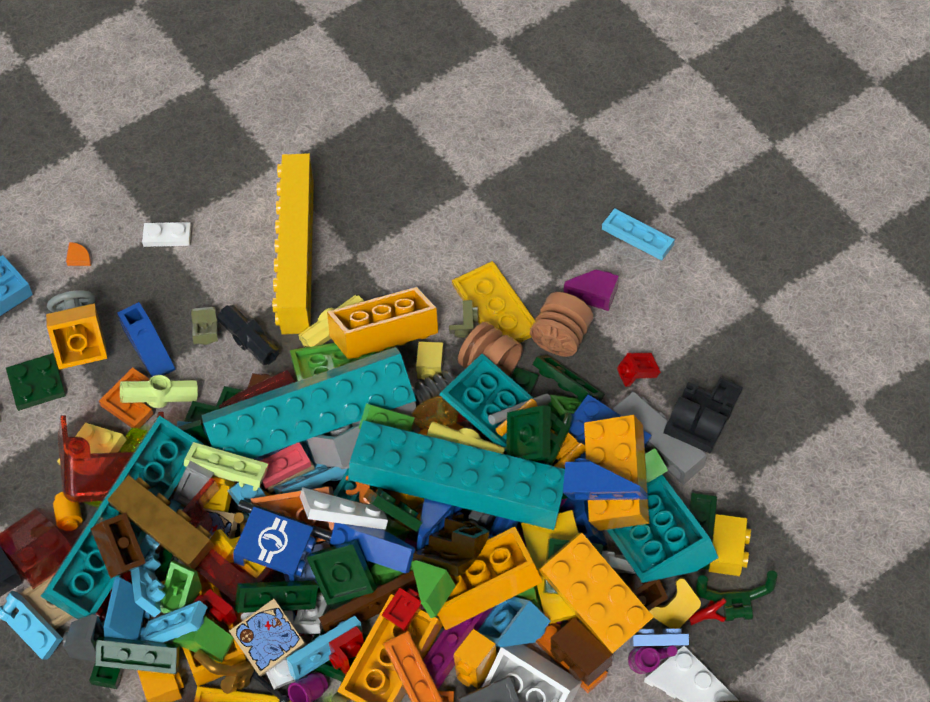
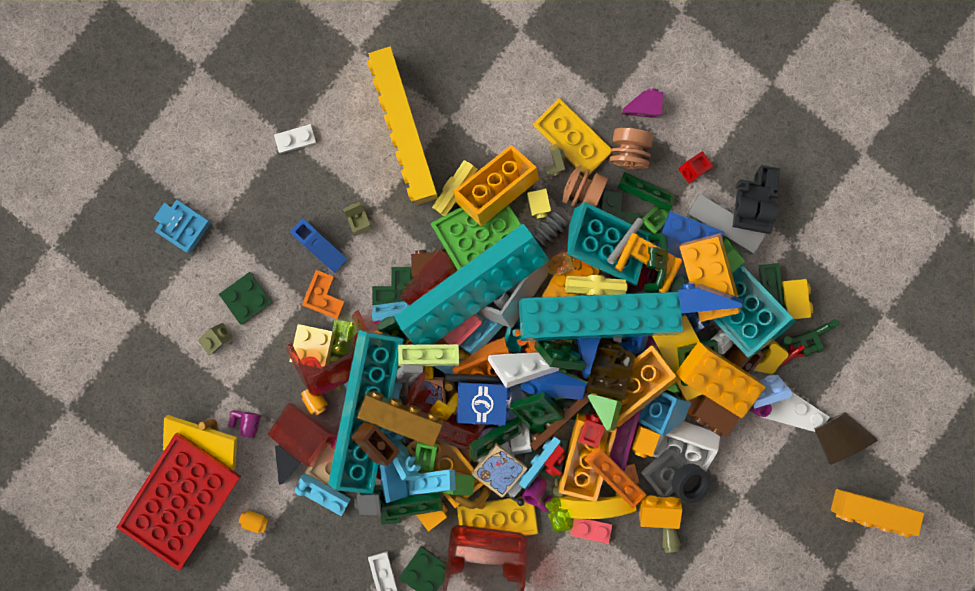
camera: 15 degrees left, 30 degrees up
(75, 329) = (262, 254): light orange piece -> none
(77, 255) = (232, 177): orange tile -> none
(158, 391) = (335, 293): yellowish green piece -> none
(217, 607) = (459, 461): red bracket -> none
(248, 334) = (393, 216): black piece -> none
(387, 417) = (533, 284): bright green plate -> none
(529, 433) = (644, 272): dark green plate -> none
(638, 234) = (665, 43): medium azure plate -> none

